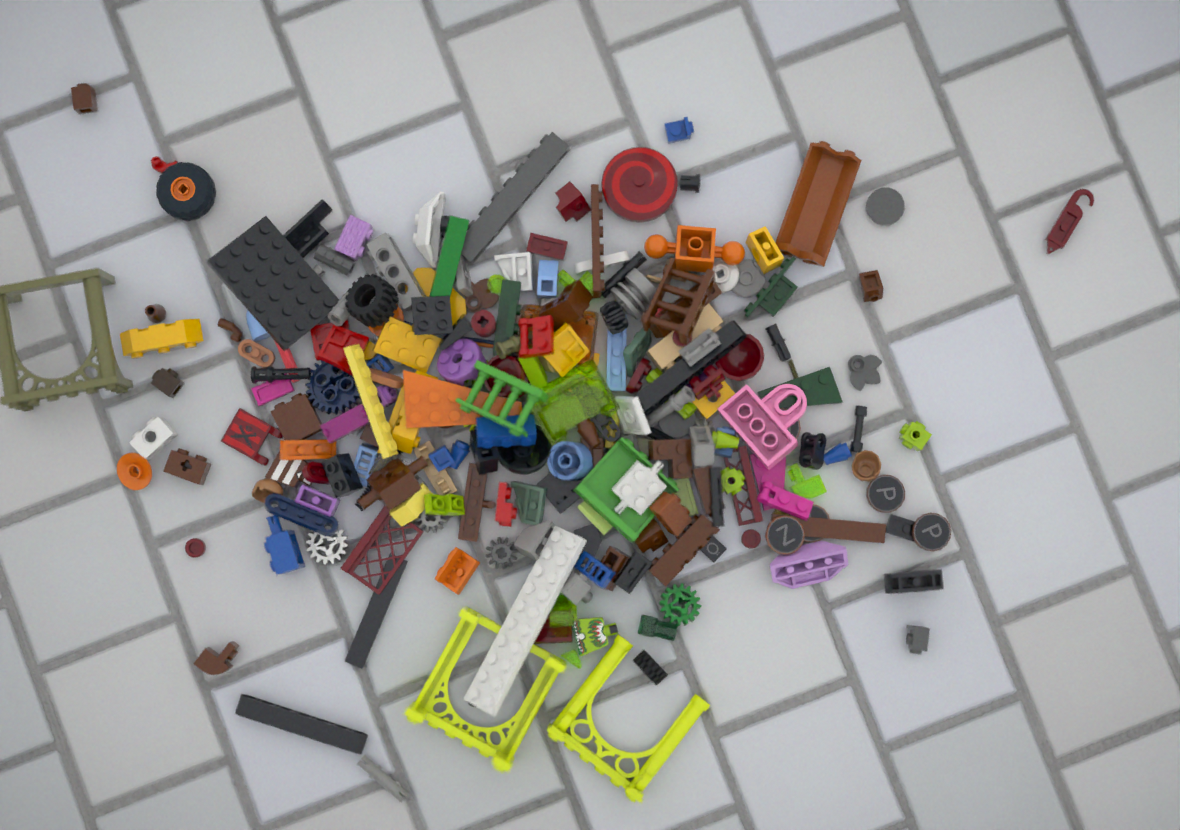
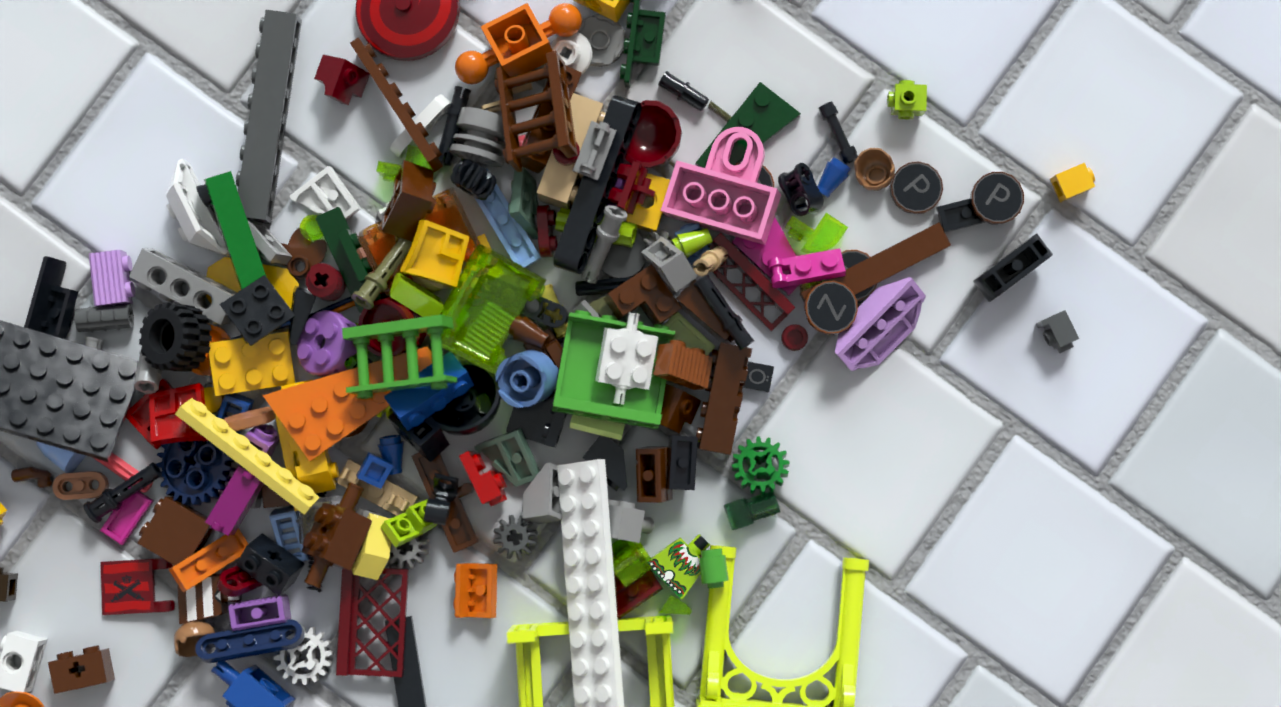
camera: 30 degrees left, 0 degrees up
(467, 506) = (438, 509): none -> black leg
(542, 336) = (402, 254): red plate -> none
(547, 246) = (344, 147): dark red plate -> none
(547, 279) = (368, 185): light blue slope -> none
(607, 576) = (655, 487): blue slope -> none
(611, 649) = (713, 568): none -> bright green brick
(632, 416) = (566, 281): white tile -> none
(650, 667) = (772, 560): black tyre -> none
(728, 459) = (710, 261): none -> tan pin
(738, 477) = (734, 274): lime brick -> none
(866, 373) = (806, 62): dark grey plate -> none
(985, 551) = (1073, 182): none -> yellow brick

